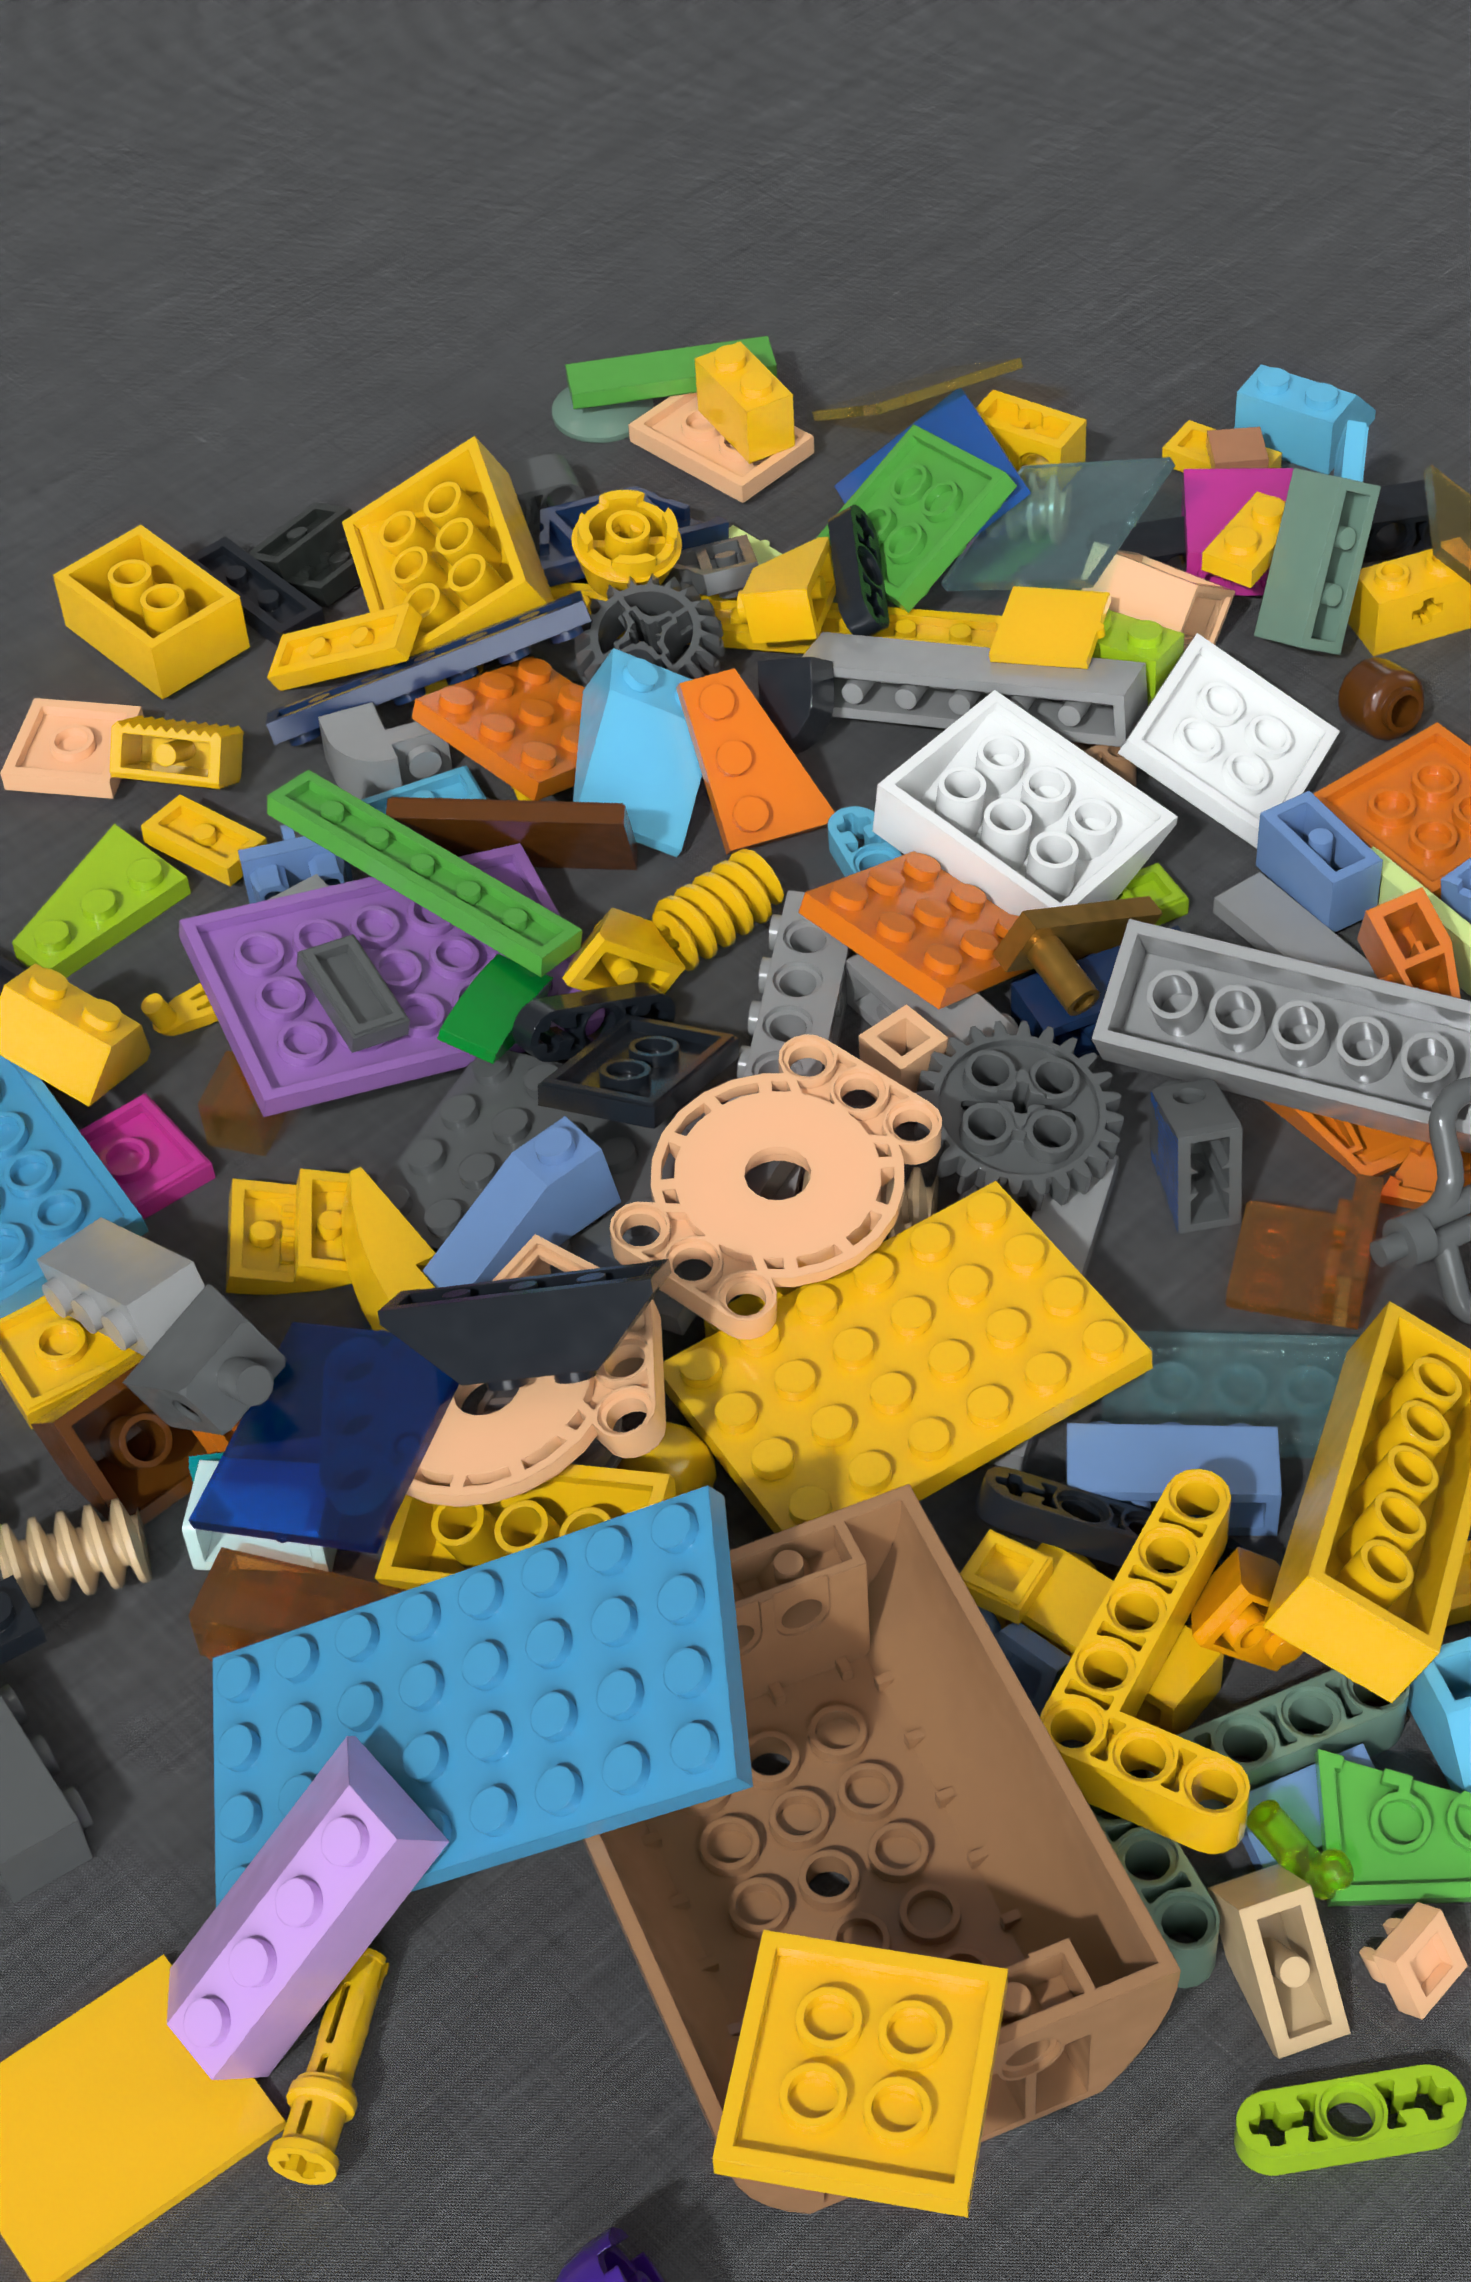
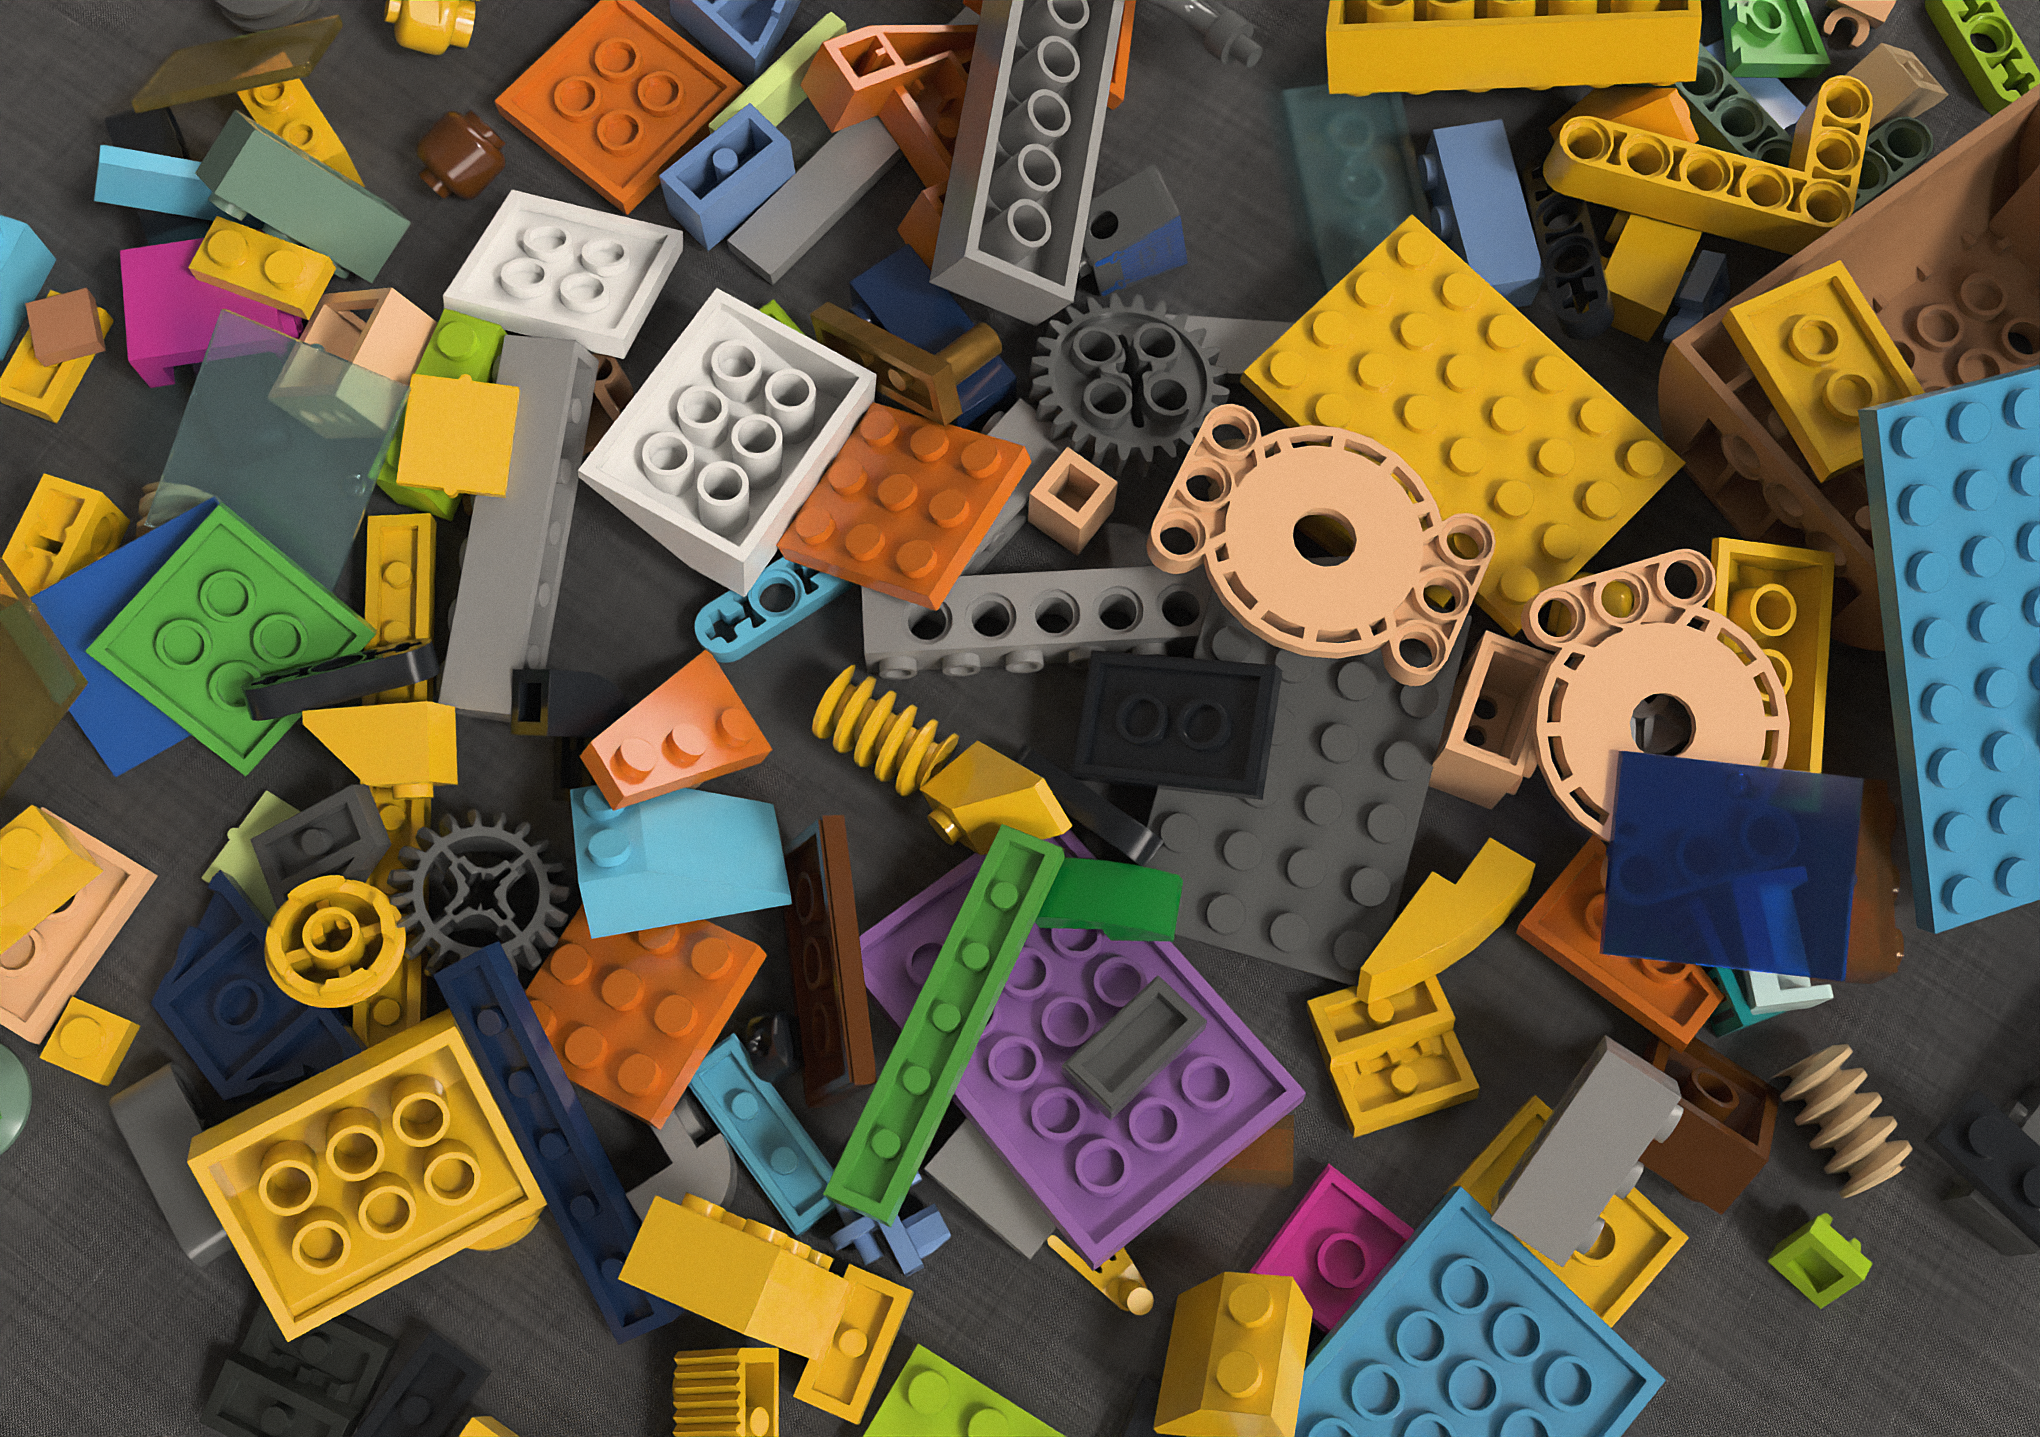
camera: 110 degrees left, 25 degrees up
(207, 1367) = (1683, 1010): dark grey torso -> none
(265, 720) = (736, 1273): none -> yellow brick
(345, 647) = (526, 1263): yellow plate -> none
(525, 1324) = (1625, 667): black wedge -> none
(542, 1189) = (1402, 782): medium blue slope -> none
(622, 464) = (90, 1041): none -> yellow plate
(836, 1594) = (1821, 362): none -> yellow plate
(1006, 1576) = (1655, 303): yellow tile -> none
(1296, 1853) = (1828, 63): clear neon green arm -> none
(1307, 1260) = (1215, 135): clear orange bracket -> none

